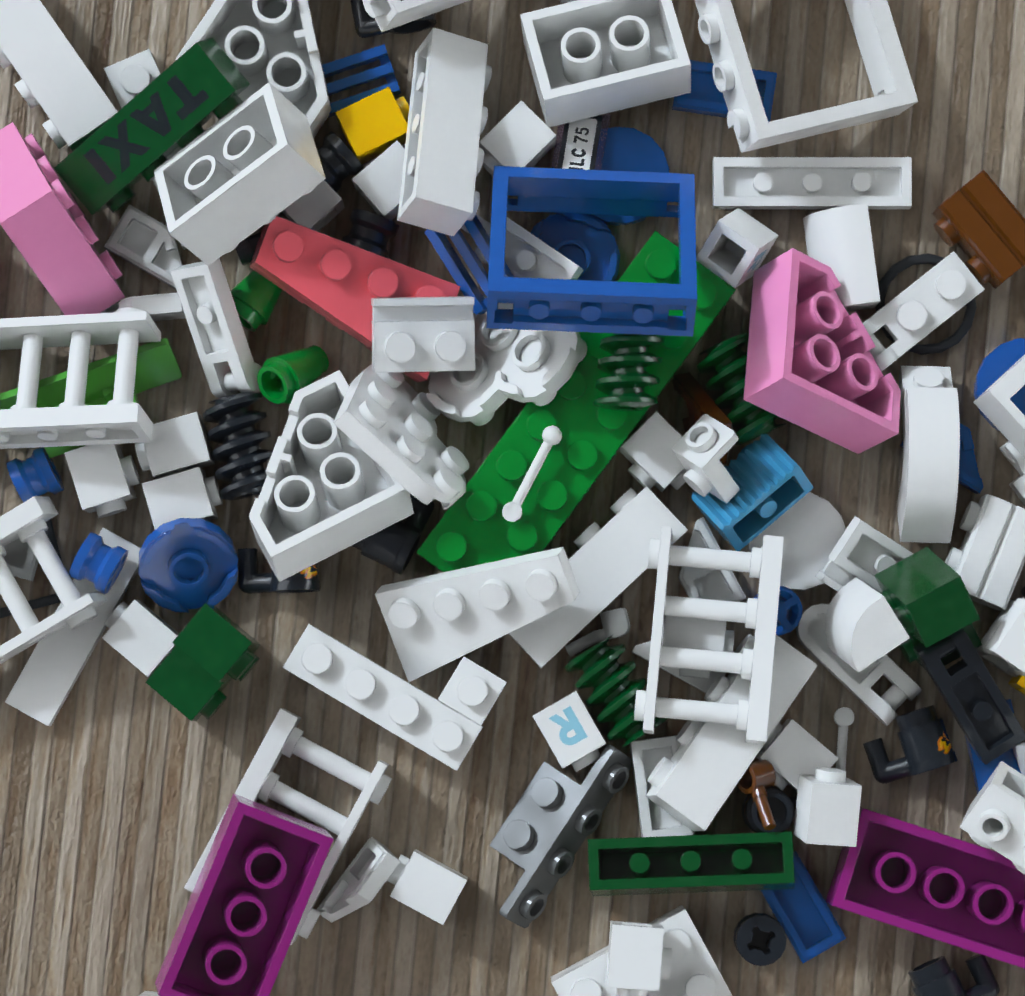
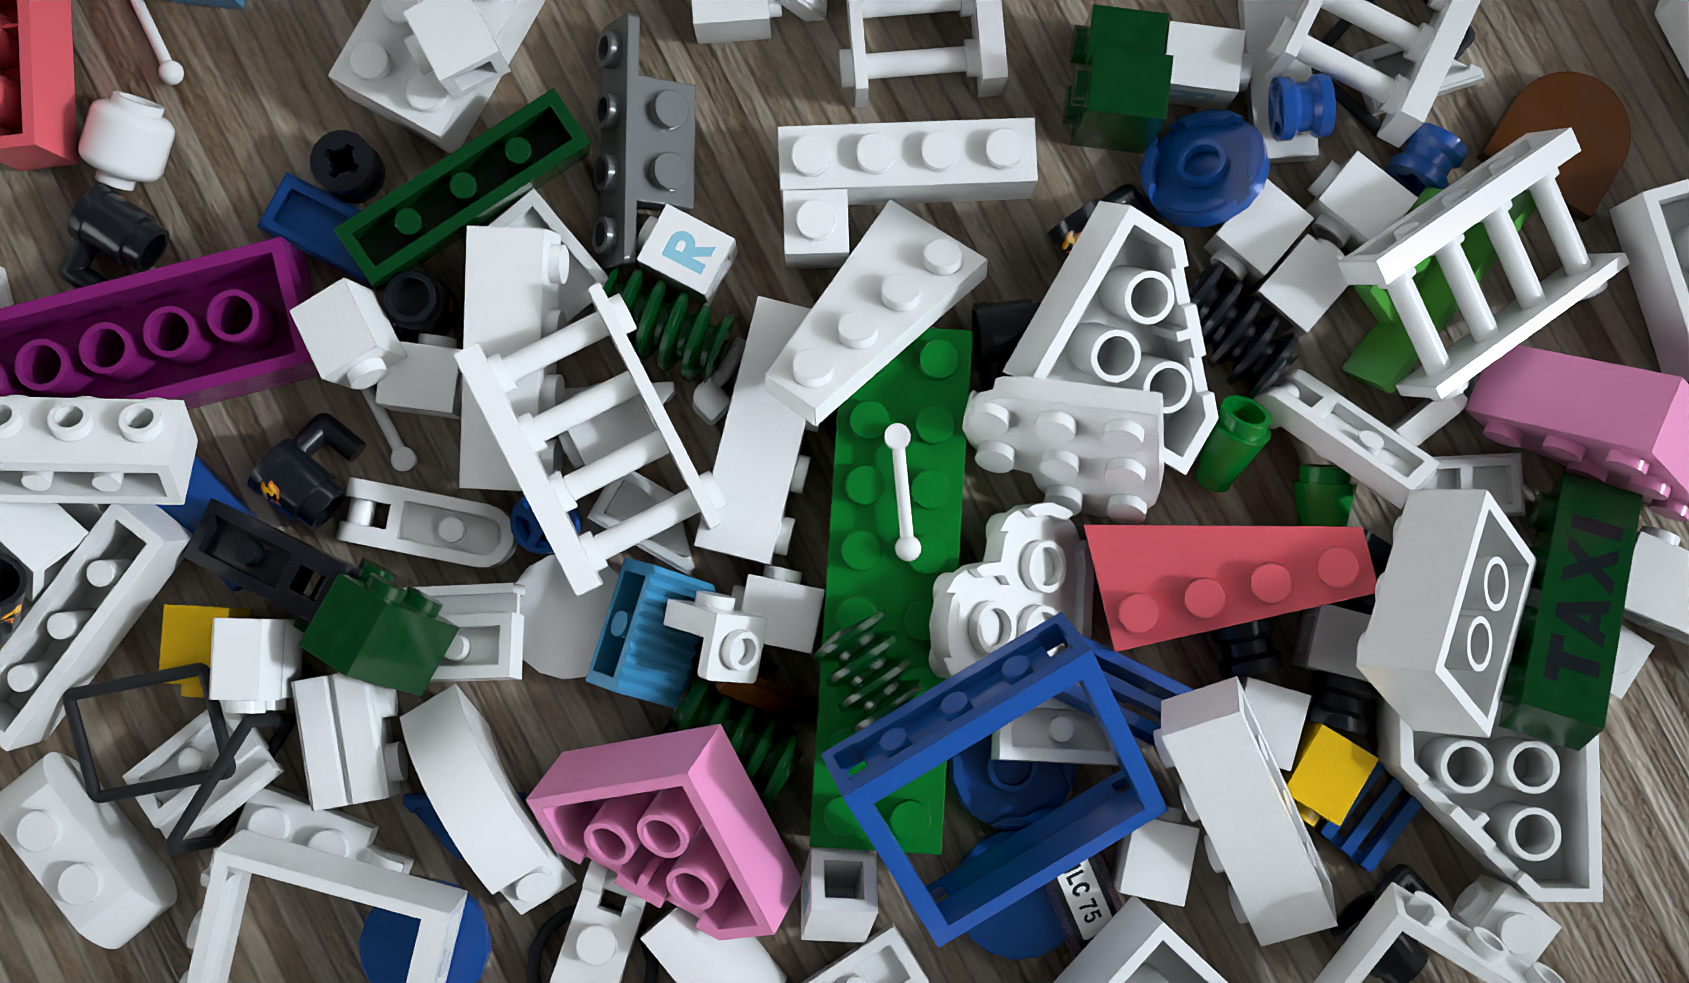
camera: 145 degrees right, 0 degrees up
(423, 334) = (1122, 569): white plate -> none
(755, 781) = (448, 322): reddish brown hand -> none
(862, 625) = (430, 555): white brick -> none

